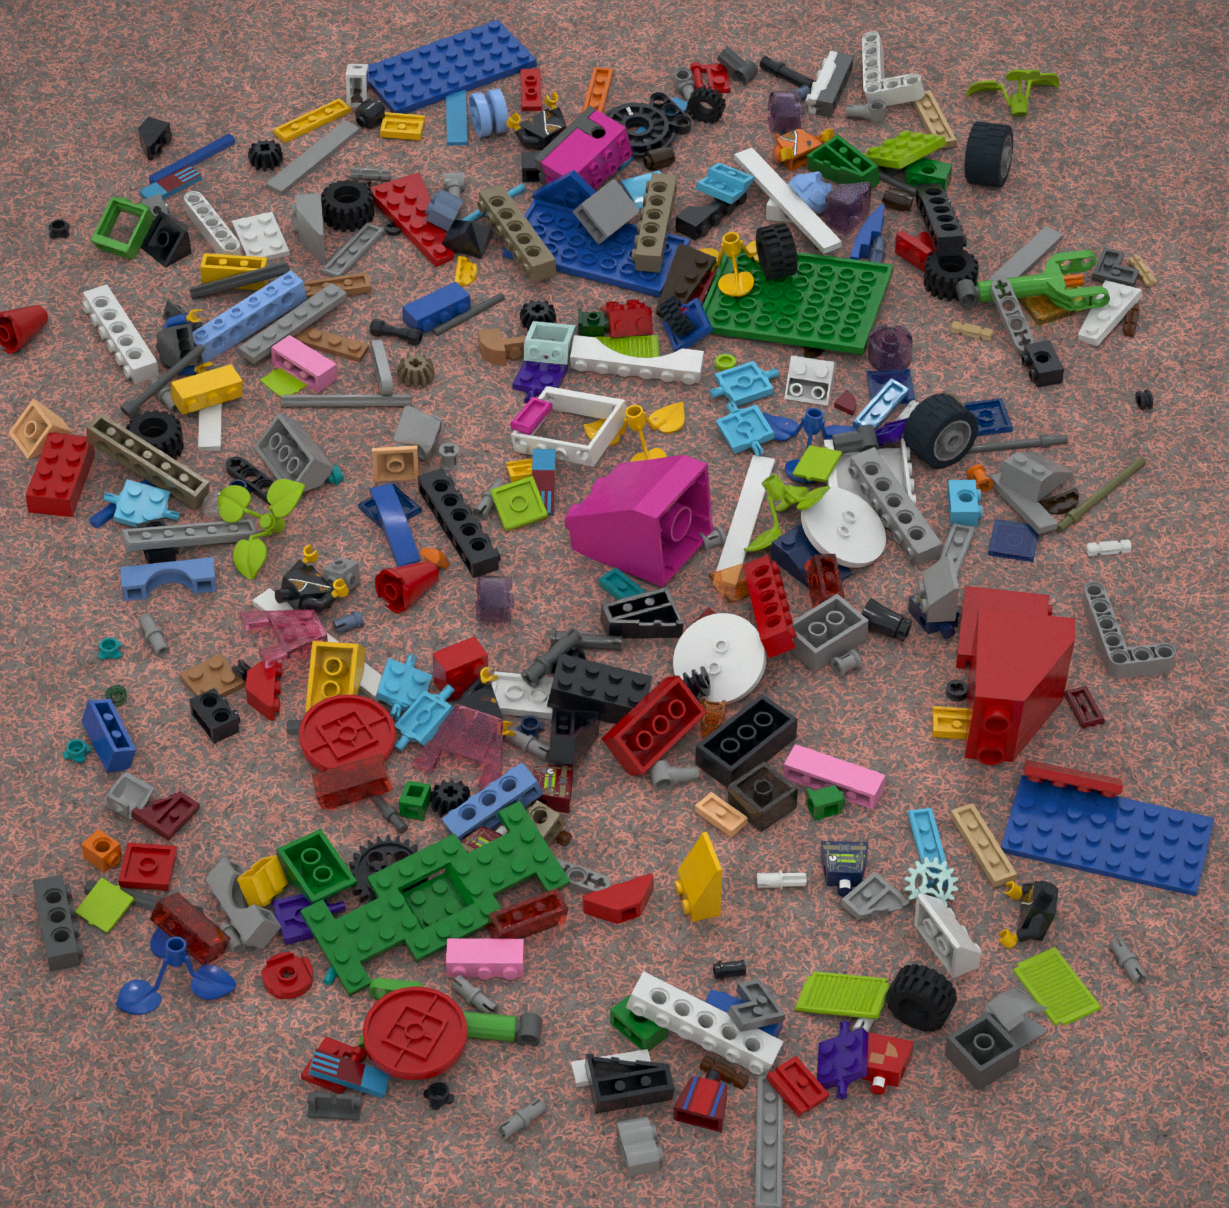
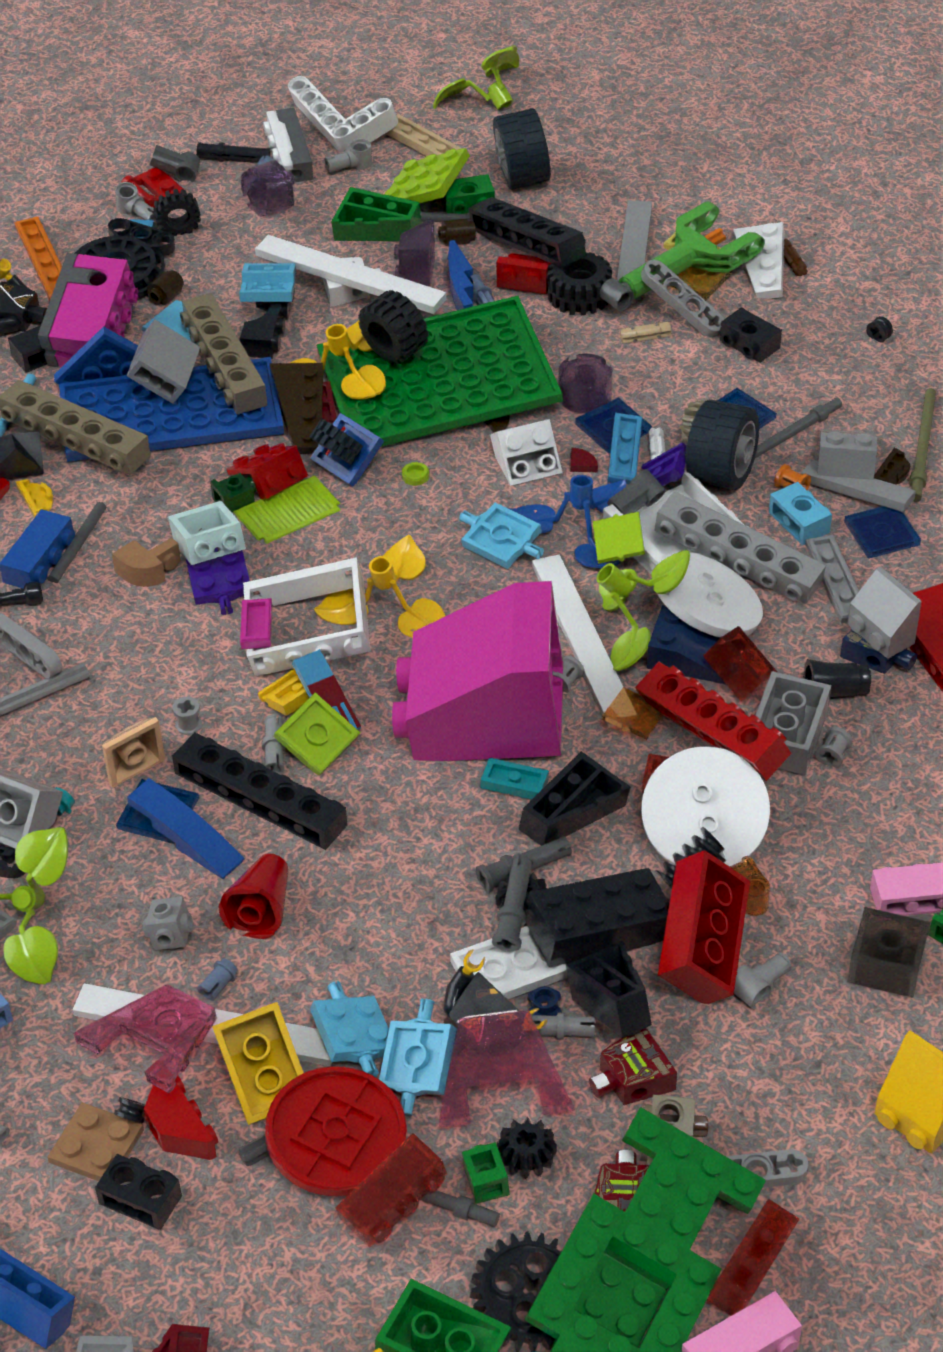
camera: 30 degrees left, 0 degrees up
(305, 587) = (139, 962): black torso -> none
(416, 370) = (67, 632): dark tan gear -> none
(419, 430) = (130, 700): light grey piece -> none
(435, 556) = (264, 844): orange tile -> none
(459, 666) = (414, 970): red brick -> none
(494, 599) = (382, 857): clear purple brick -> none
(496, 793) = (605, 1077): medium blue brick -> none
(538, 312) = (160, 505): black gear -> none
(593, 356) = (270, 526): white arch -> none
(620, 901) = (837, 1173): red slope -> none
(721, 814) = (854, 999): light nougat plate -> none
(744, 383) = (456, 486): medium azure plate -> none
(746, 740) = (813, 895): black brick -> none
(794, 146) = (310, 220): orange torso -> none
(812, 190) = (369, 251): light blue piece -> none
(1109, 268) = (732, 218): dark grey plate -> none
(1144, 272) = (760, 206): tan axle -> none

